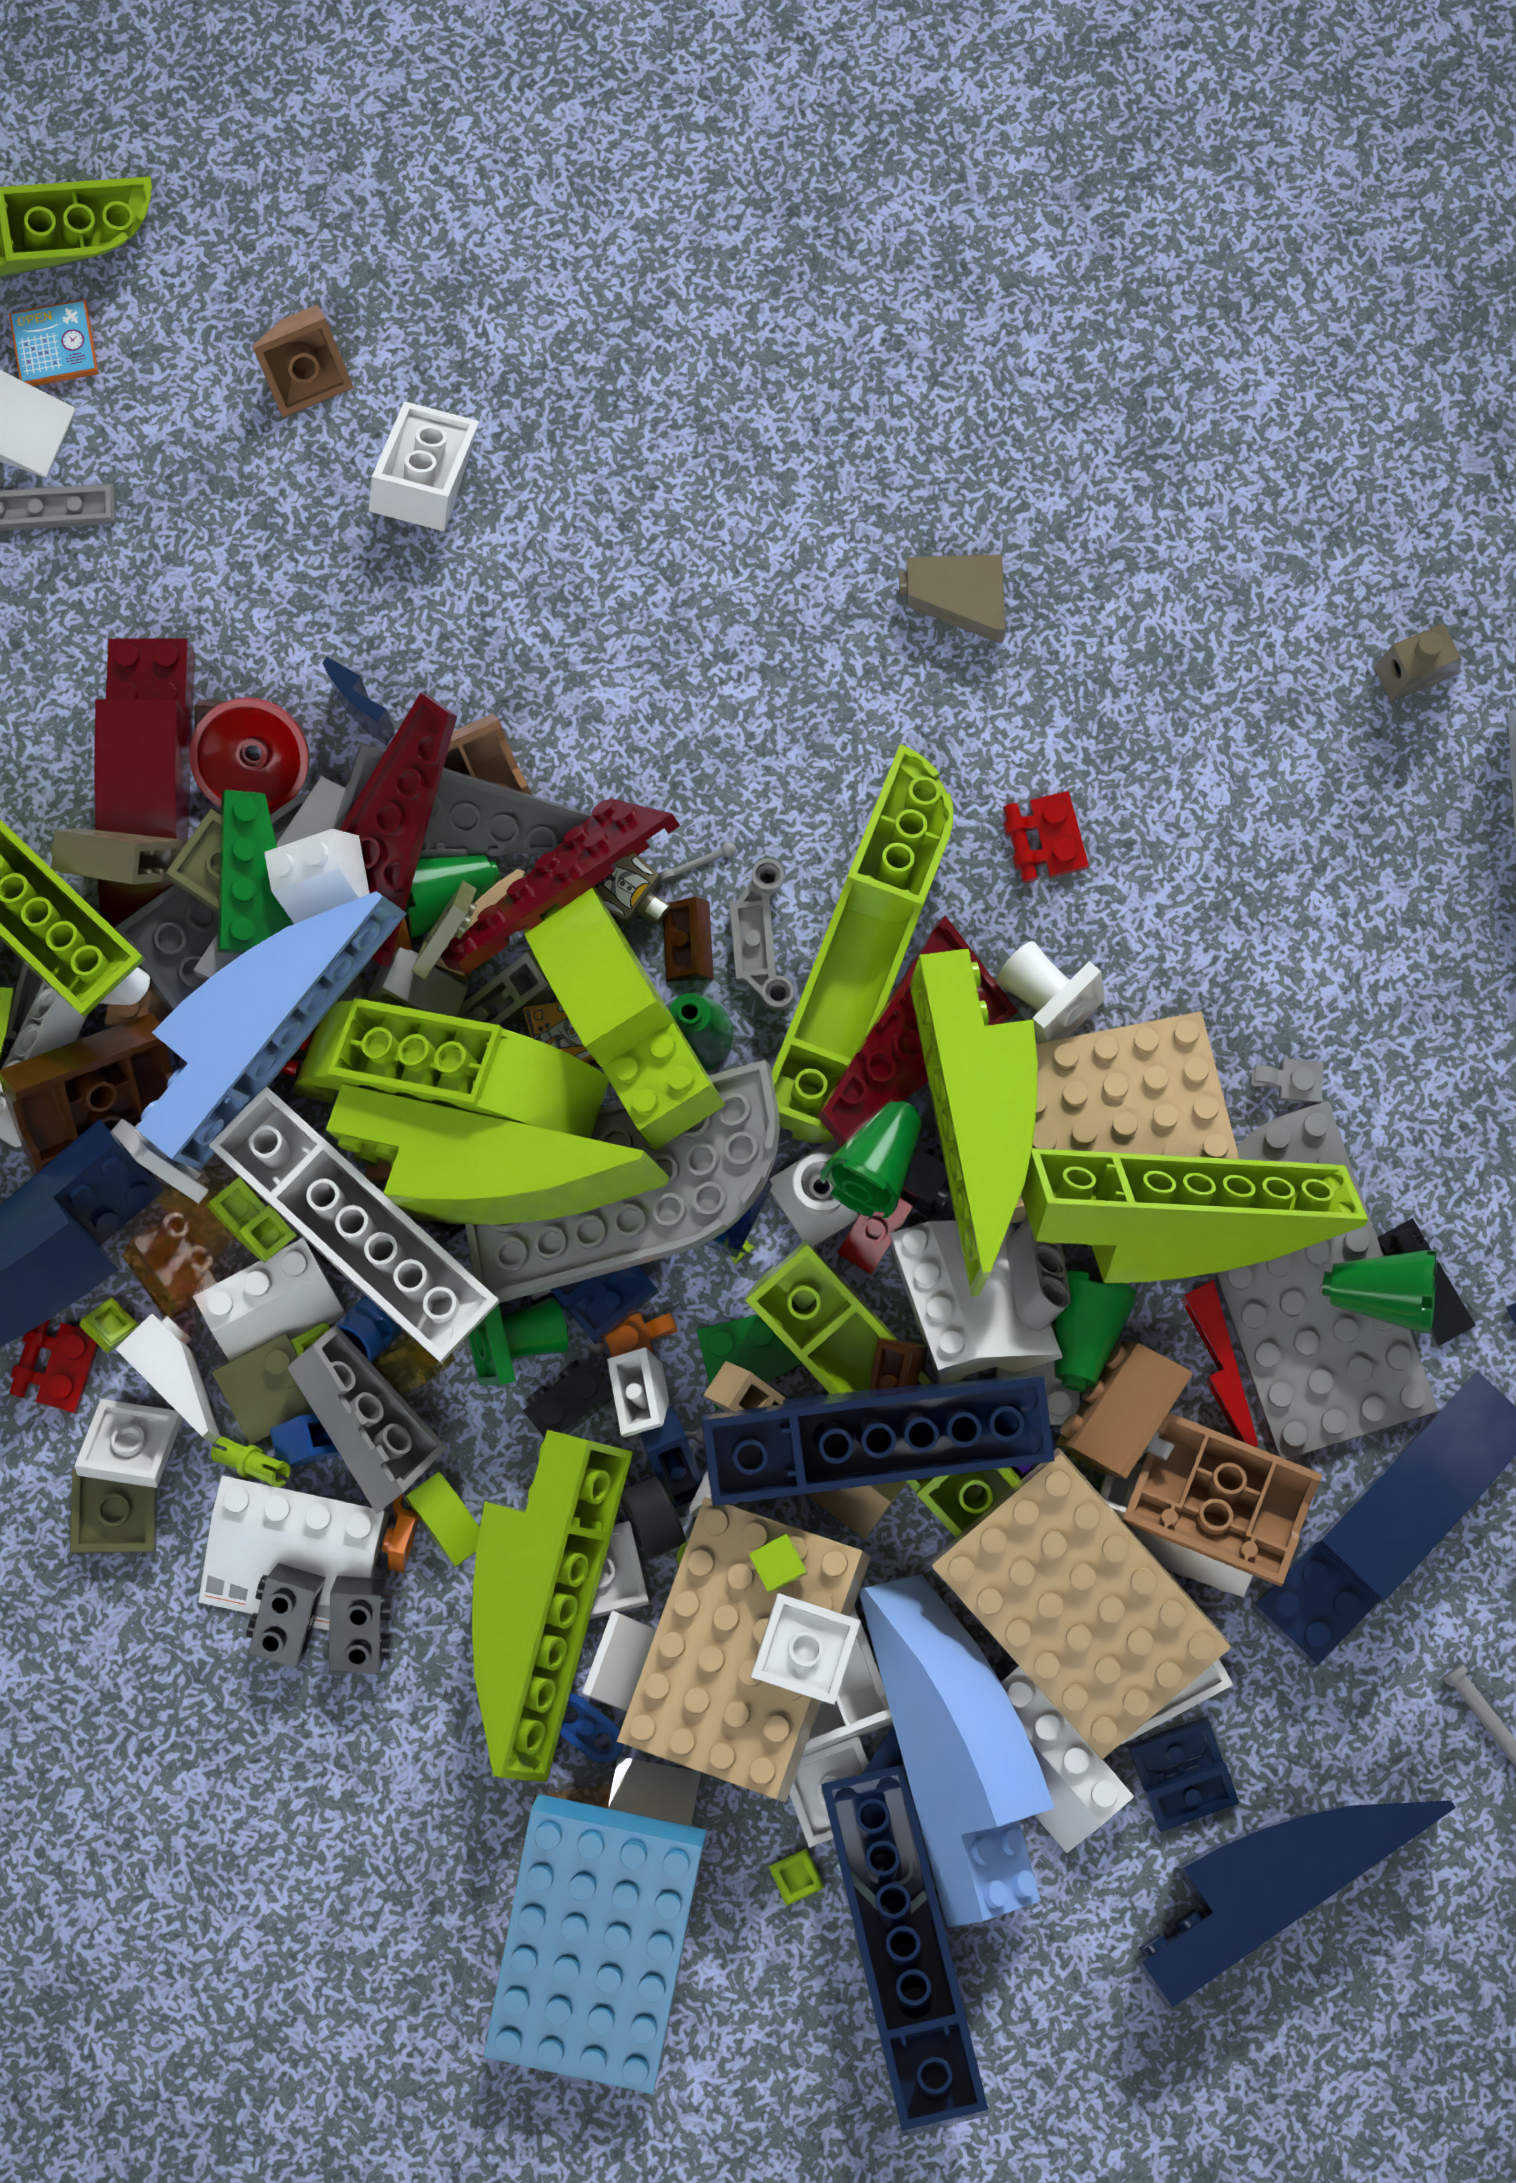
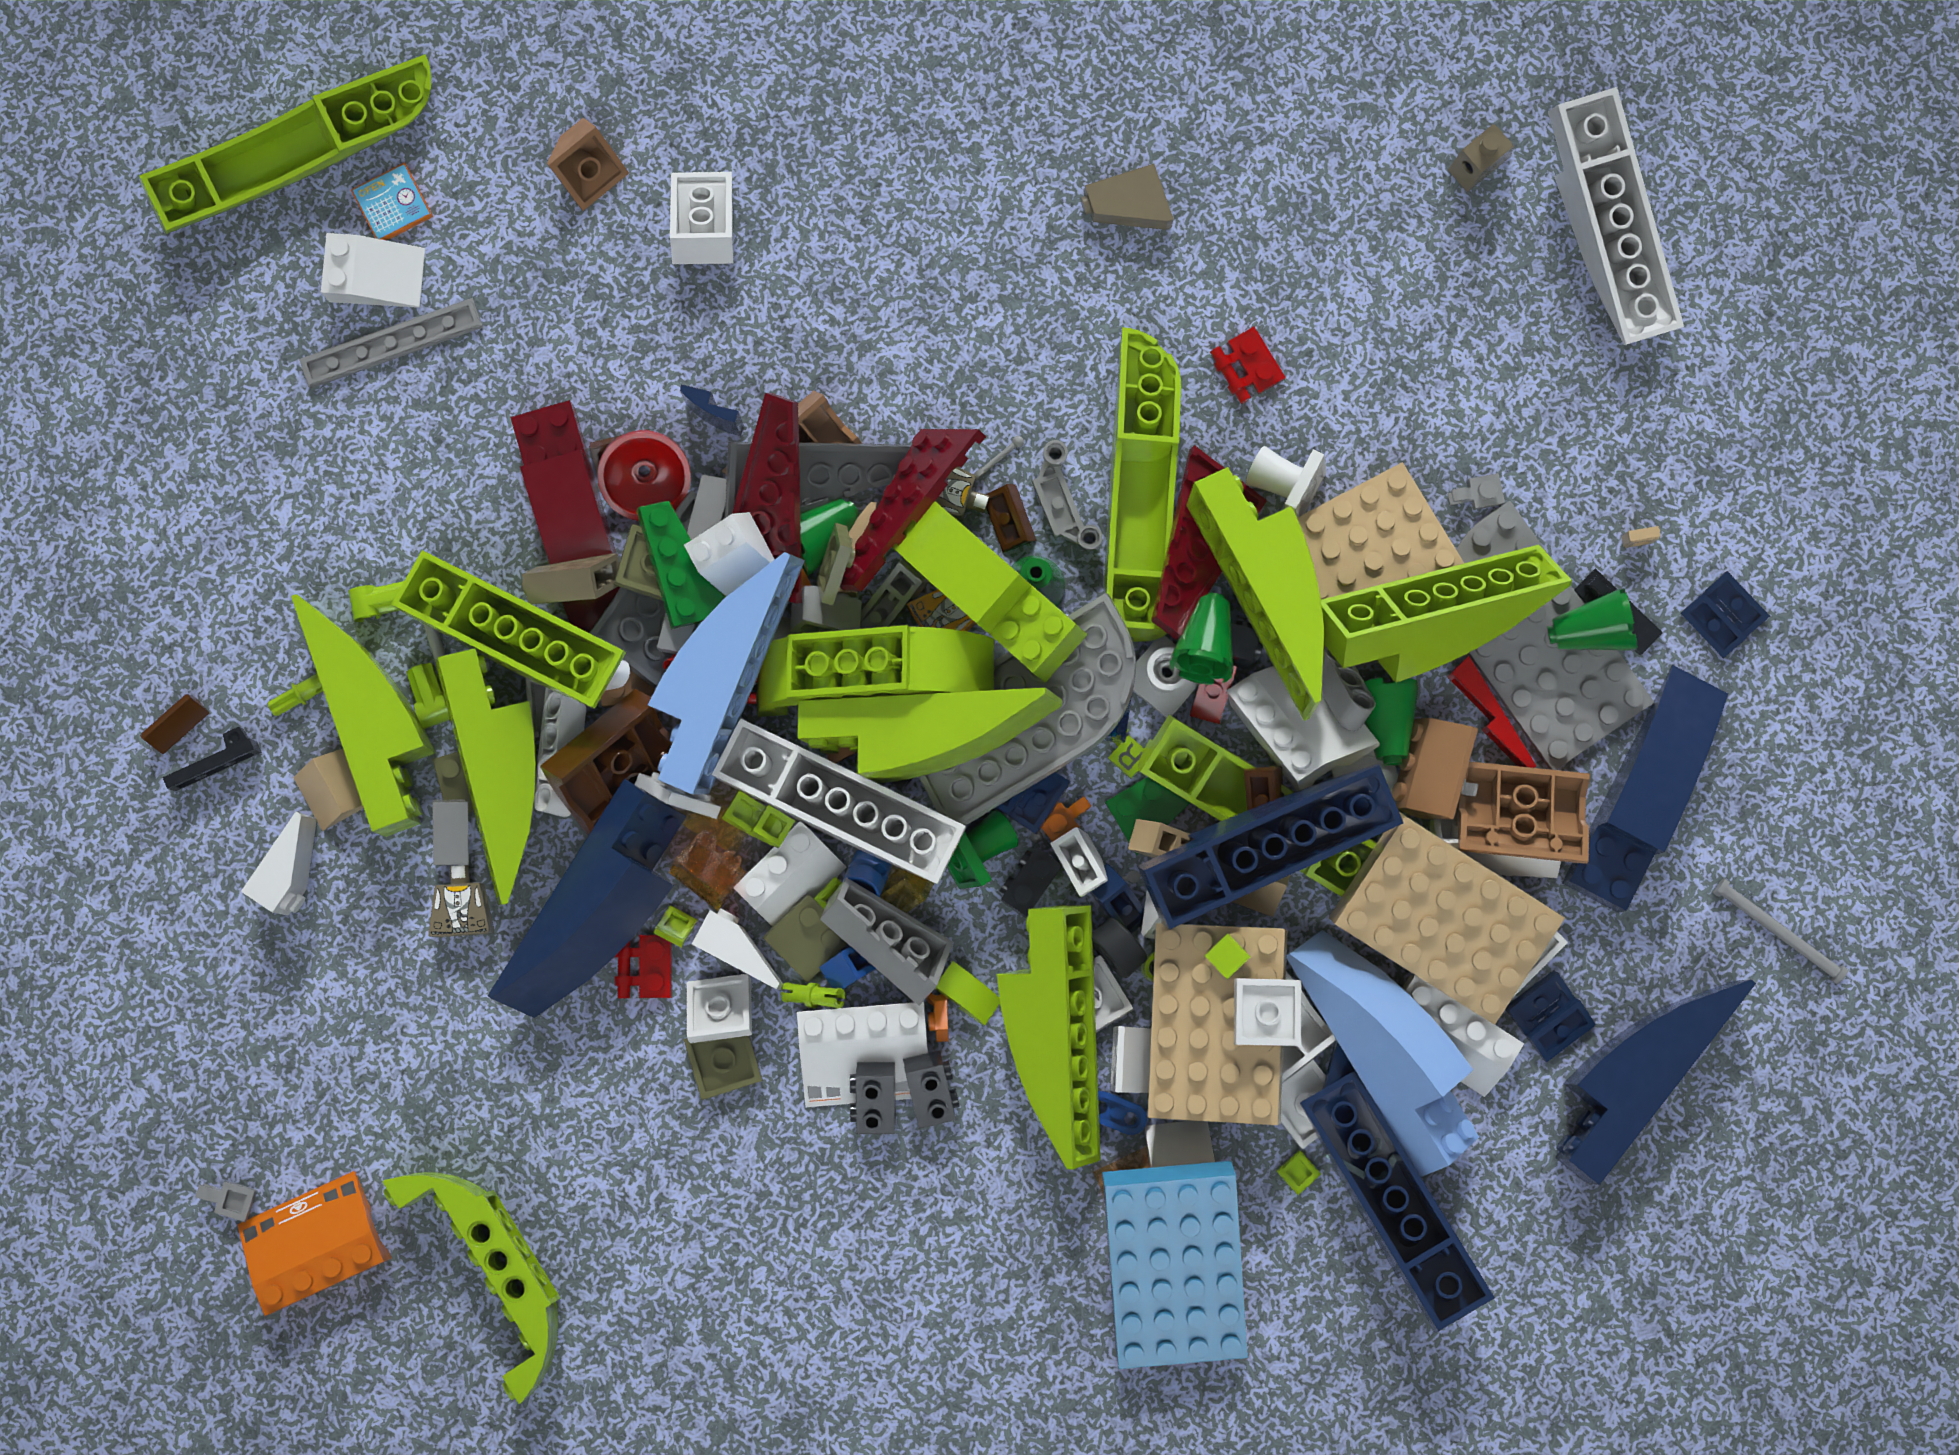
camera: 20 degrees left, 5 degrees up
(740, 1279) = (1127, 756): none -> lime tile
(1482, 1195) = (1641, 537): none -> tan tile

